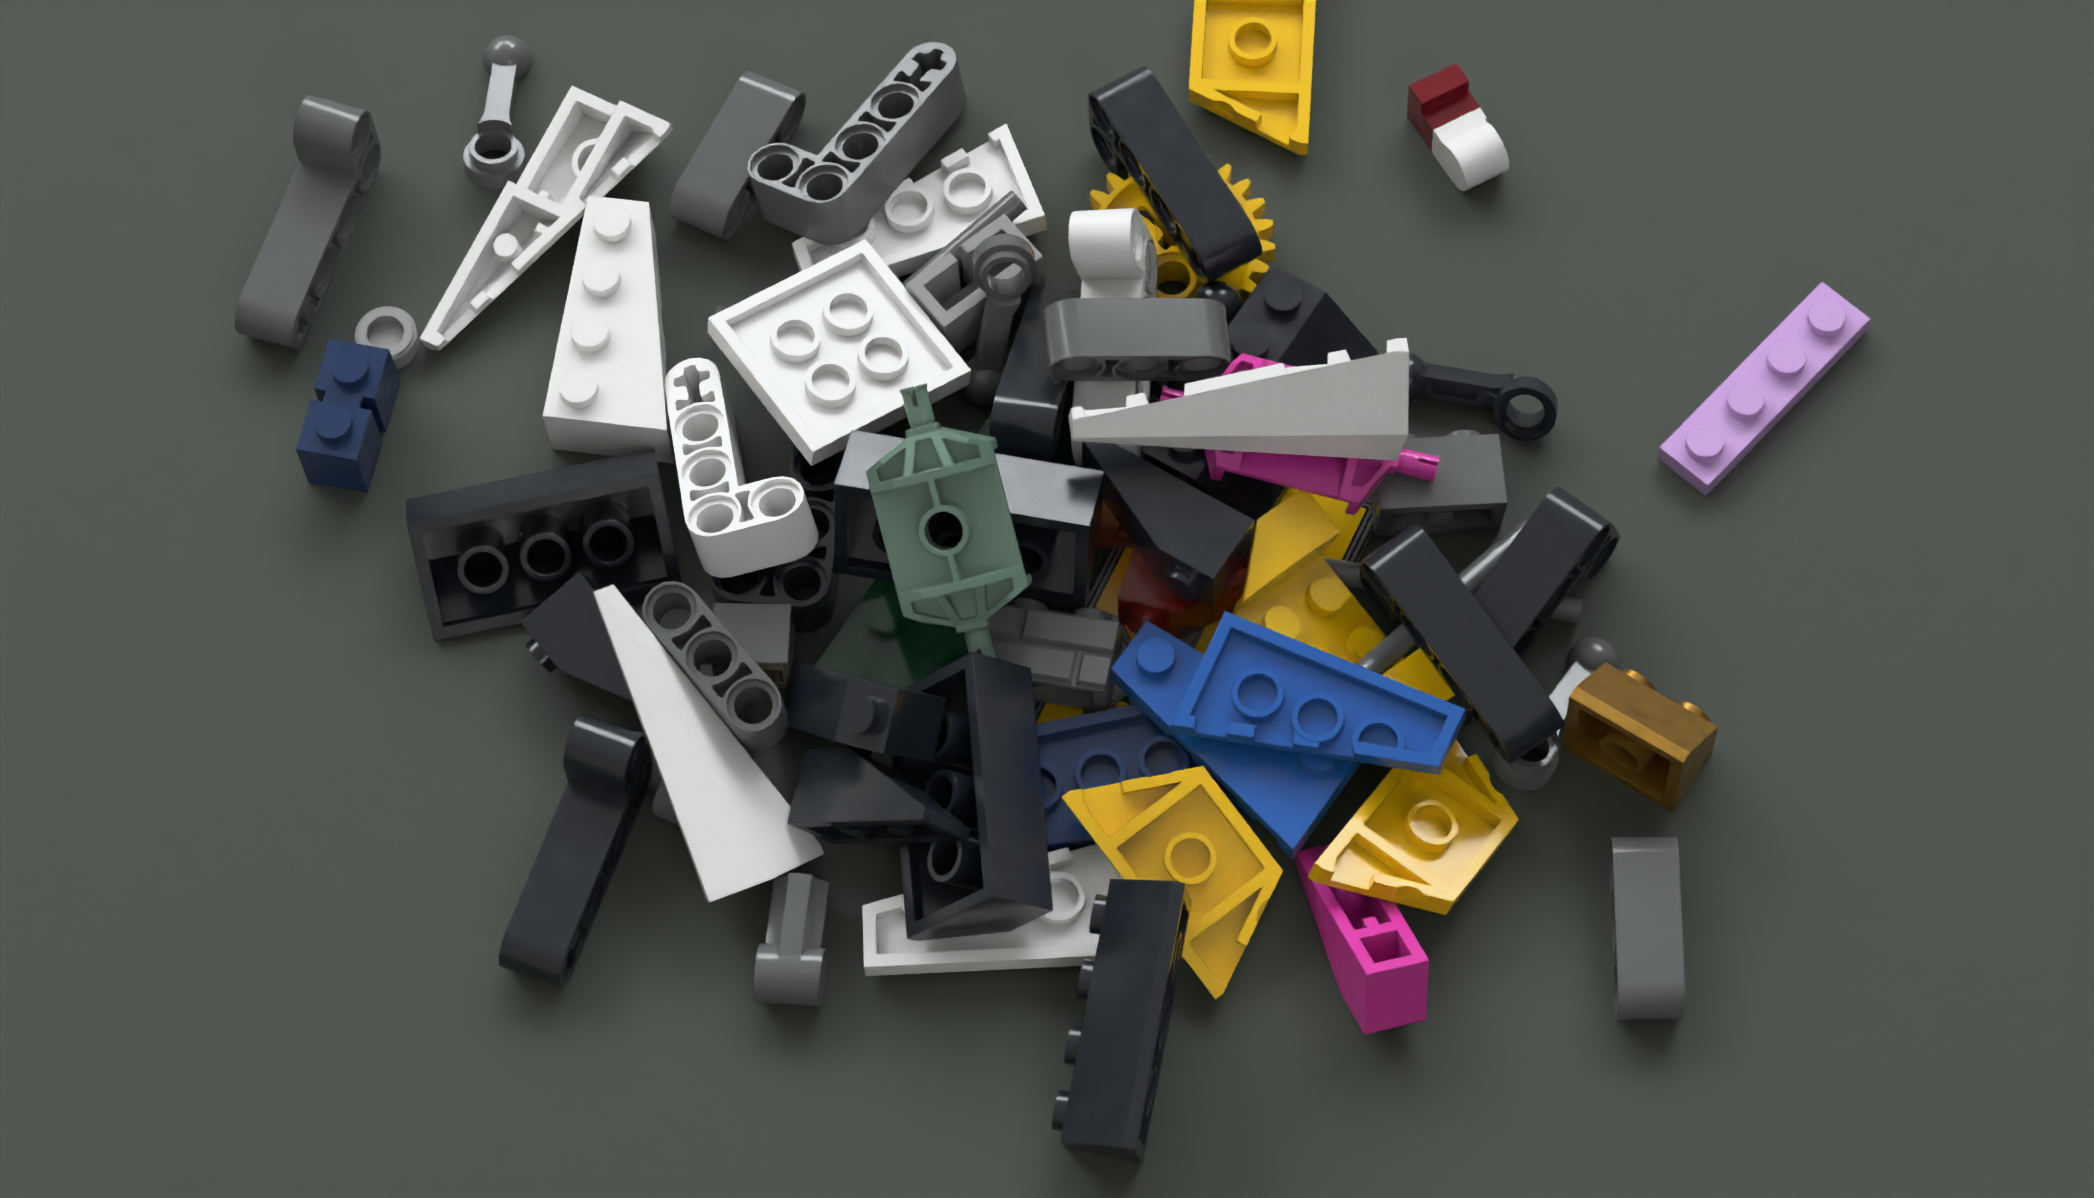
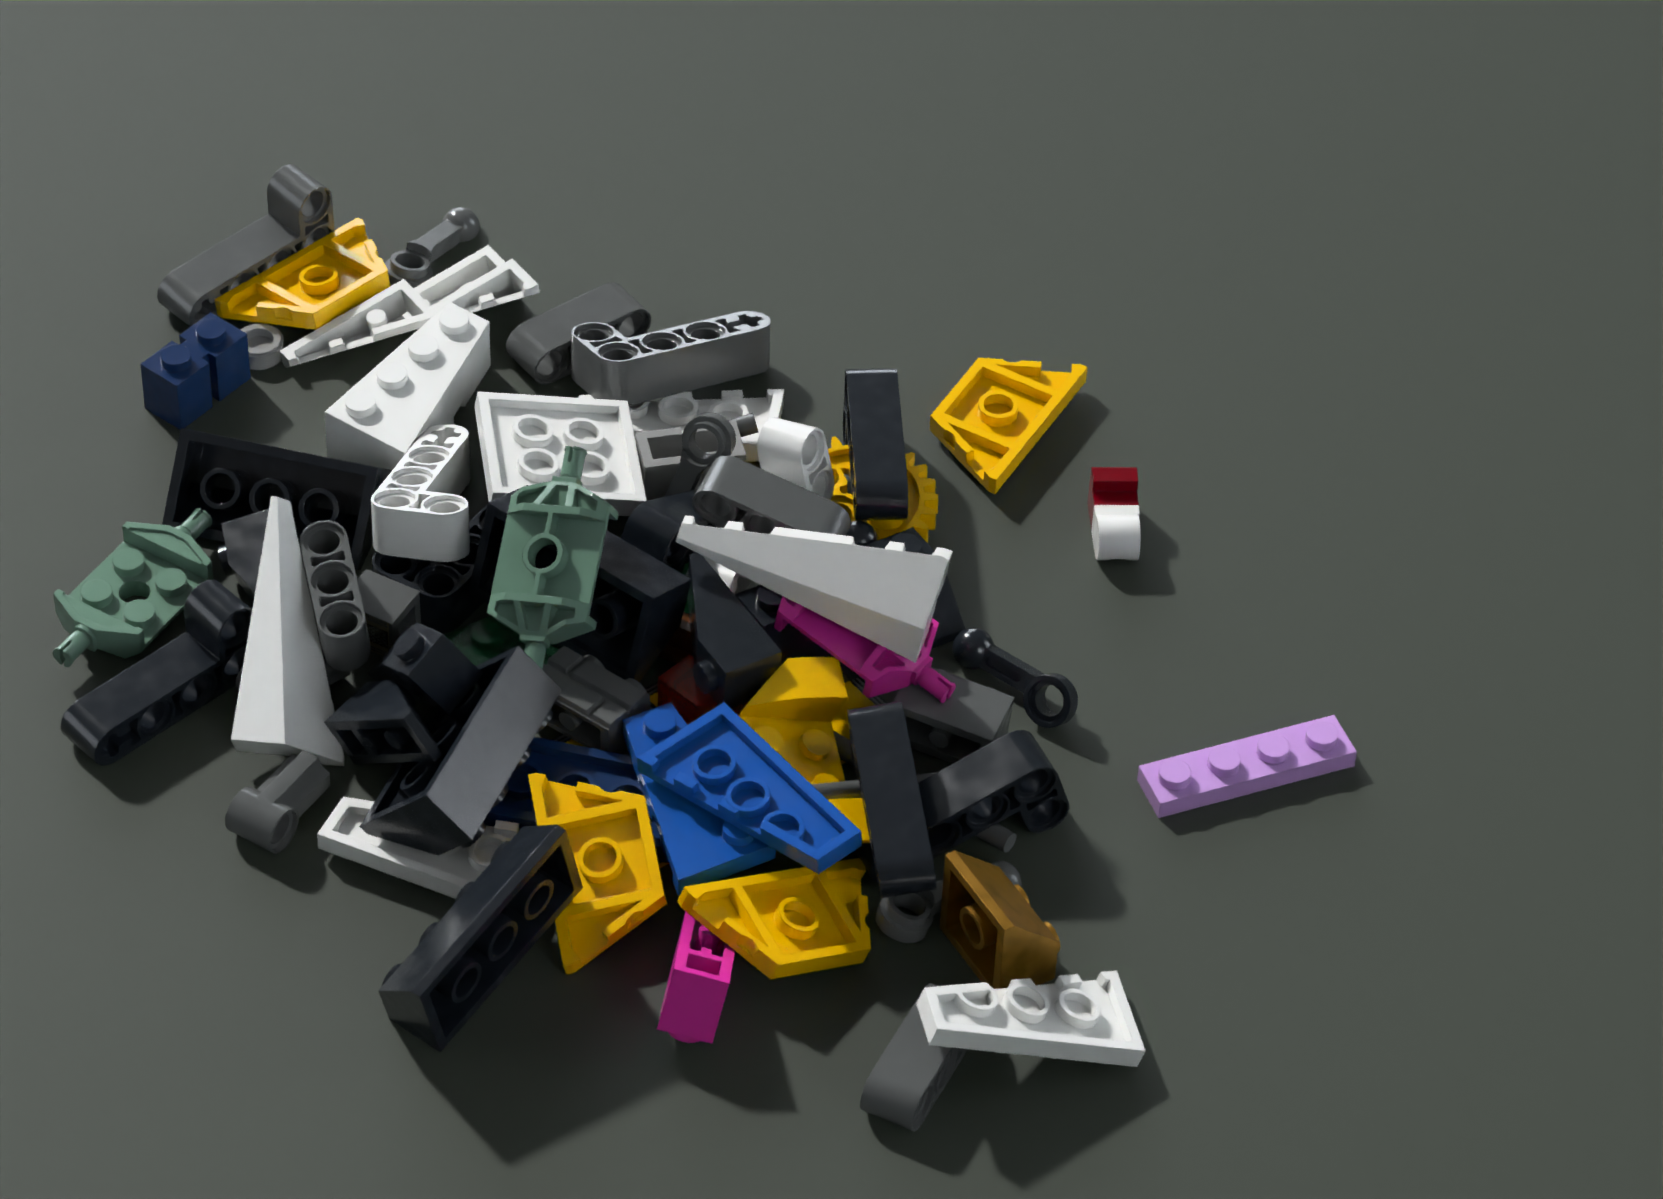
camera: 20 degrees right, 20 degrees down
(402, 226) = (311, 283): none -> yellow wing
(456, 697) = (151, 563): none -> sand green plate
(1754, 825) = (1048, 1020): none -> white wing

